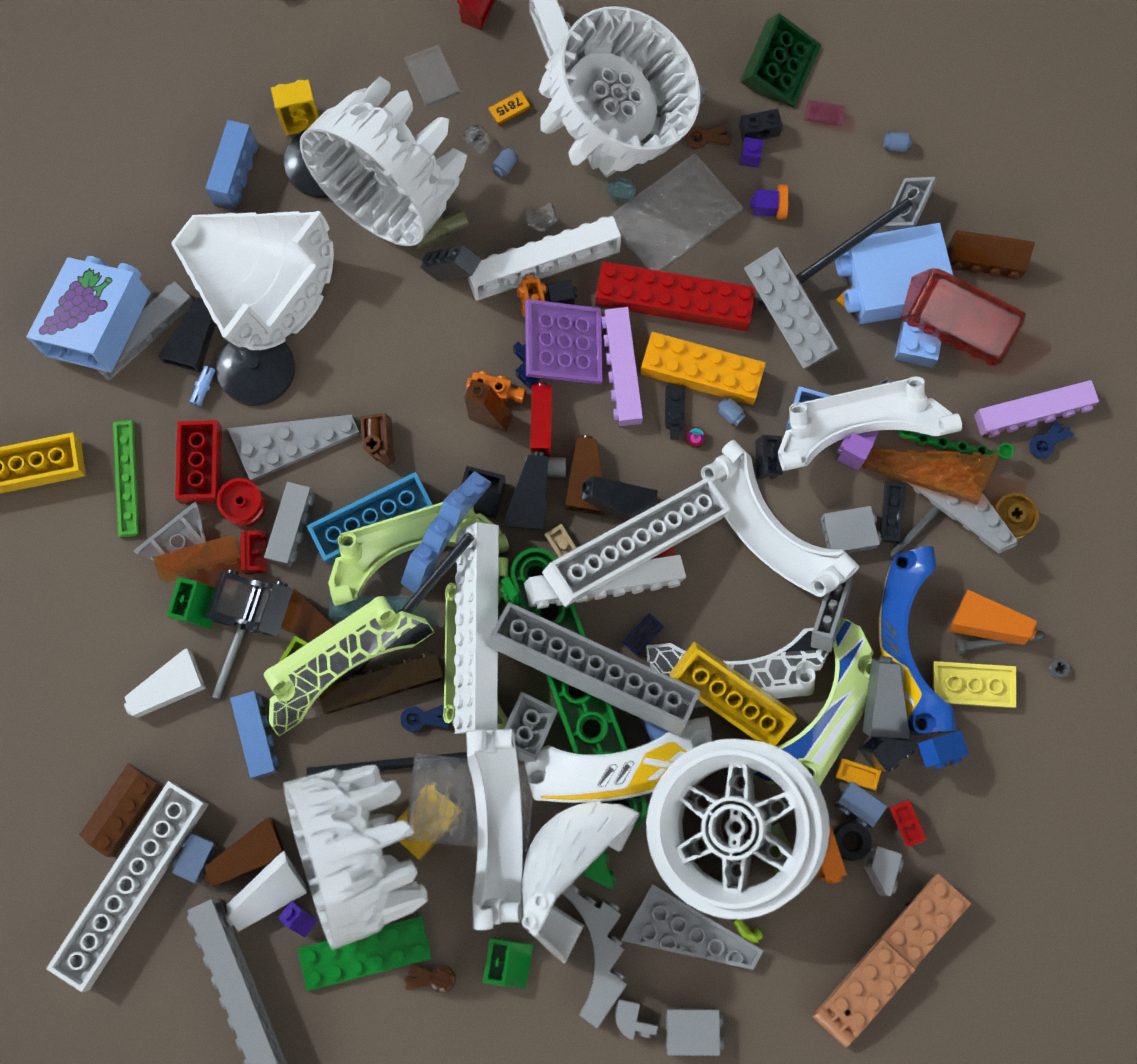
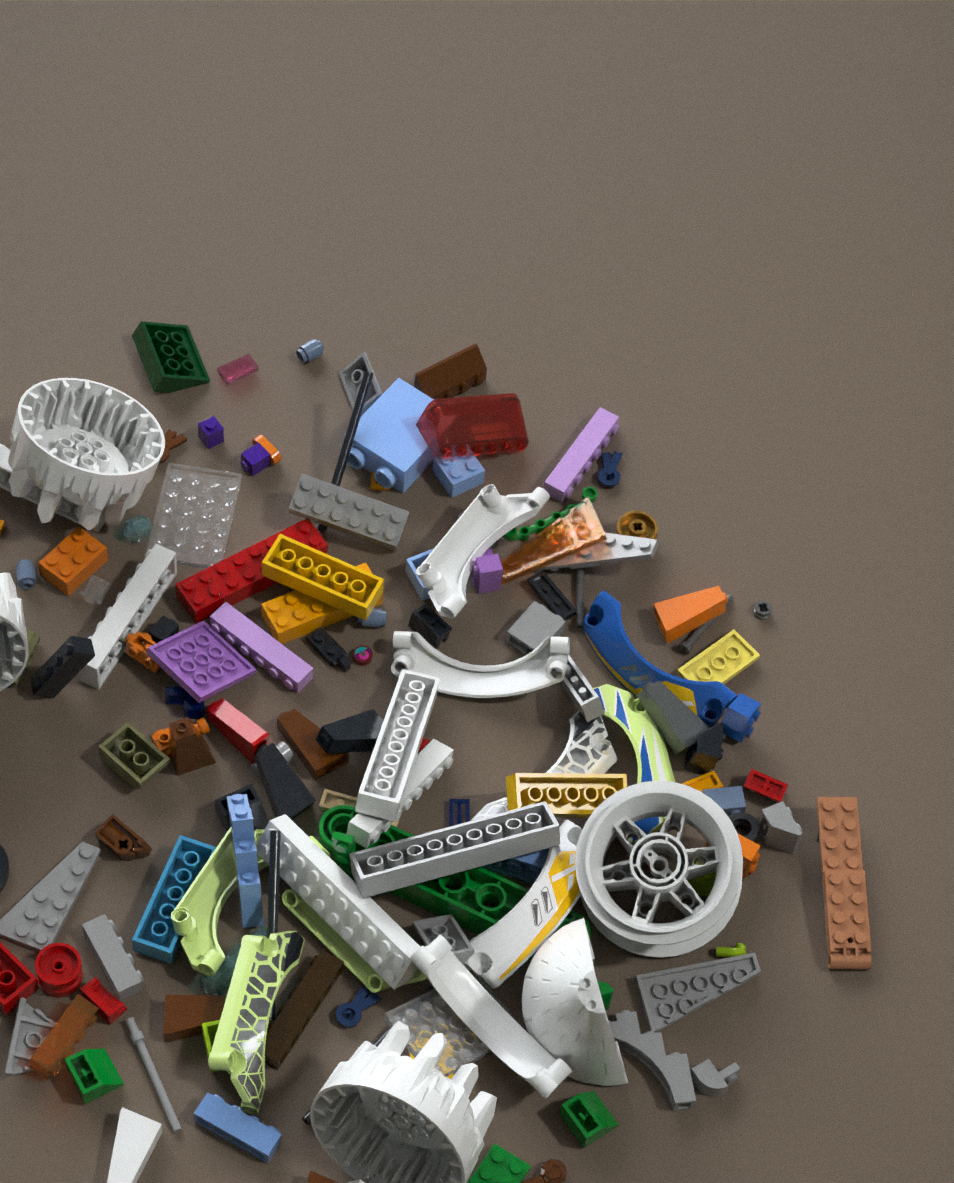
camera: 50 degrees left, 20 degrees down
(249, 603) = (142, 1032): black window -> none
(444, 377) = (132, 756): none -> olive brick
(548, 180) = (73, 561): none -> orange brick
(694, 1031) = (762, 1048): light grey brick -> none
(713, 349) = (322, 577): none -> yellow brick
(761, 125) = (199, 408): black brick -> none

